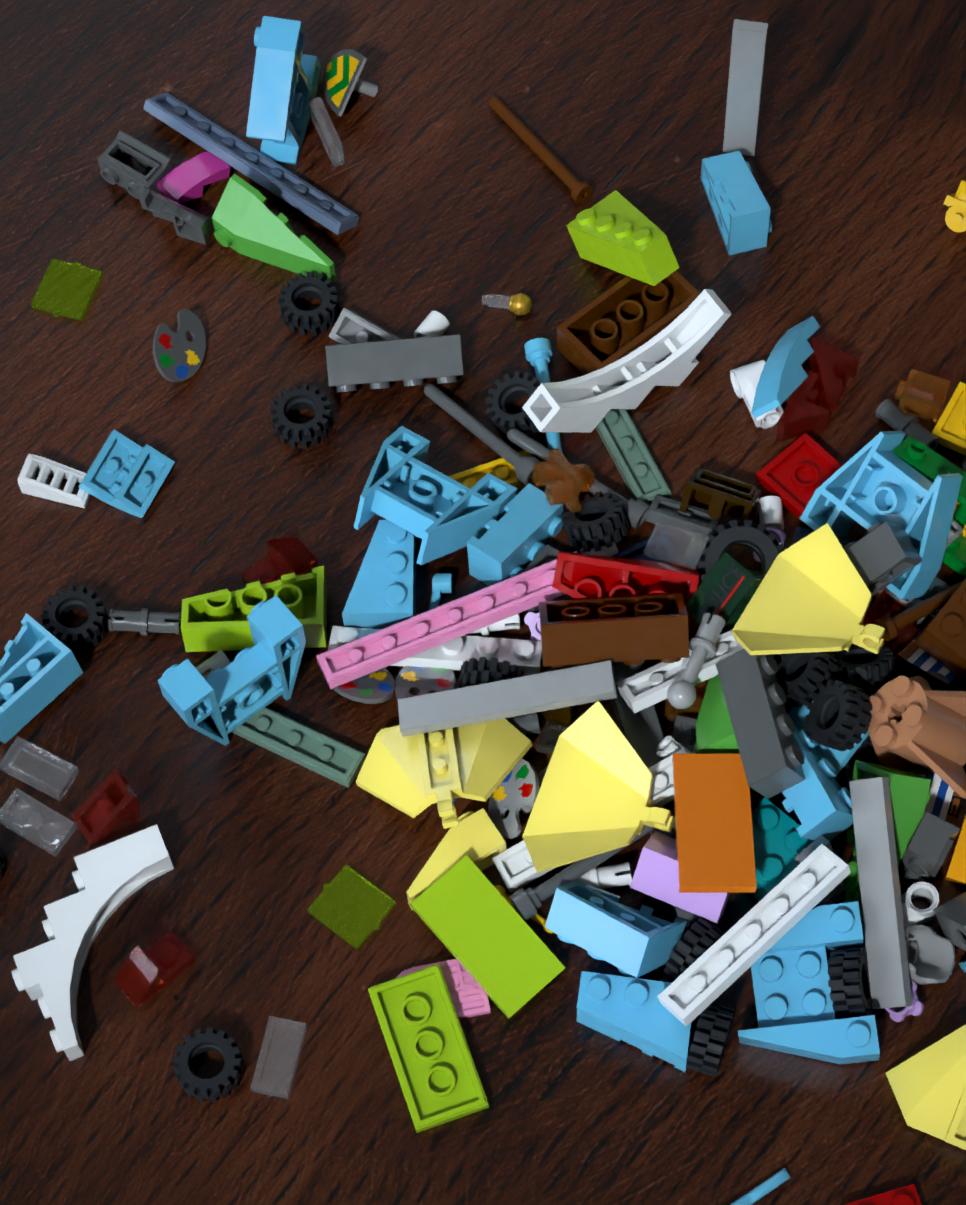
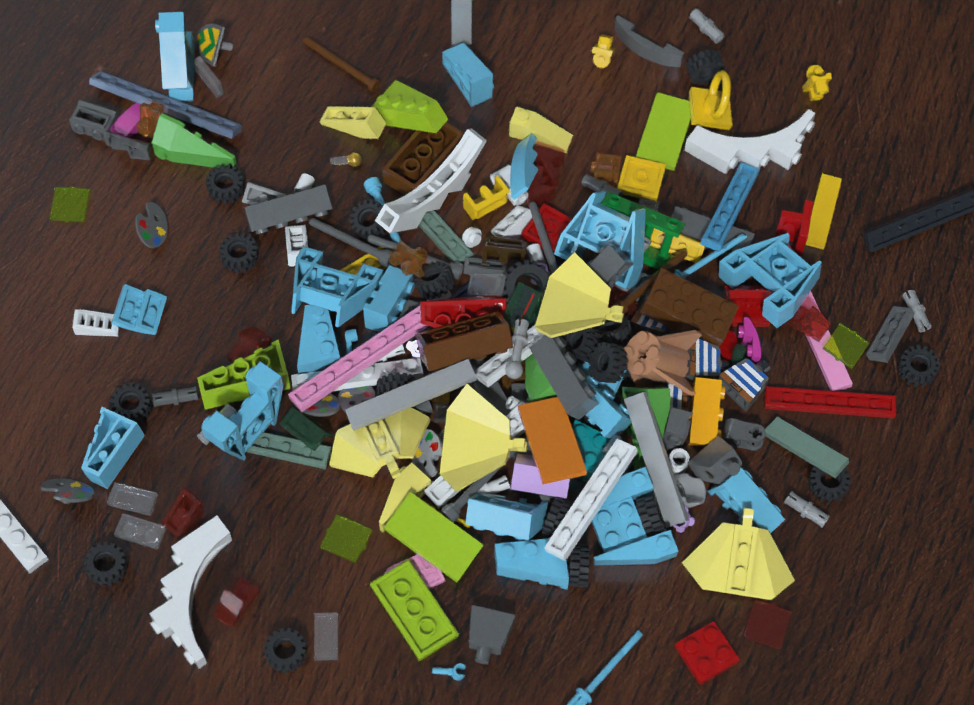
camera: 20 degrees left, 0 degrees up
(216, 177) = (149, 118): none -> clear orange hips
(331, 716) = (305, 428): none -> clear green panel
(390, 416) = (295, 243): none -> white slope
(460, 1162) = (451, 671): none -> medium azure hand
(538, 243) = (357, 121): none -> light yellow slope
(538, 1113) = (489, 632): none -> dark grey torso
(675, 464) = (472, 237): none -> white plate
(715, 412) = (487, 201): none -> yellow window
(748, 456) = (513, 223): none -> white slope
(789, 485) = (543, 236): none -> dark grey piece
(837, 318) = (547, 133): none -> light yellow slope

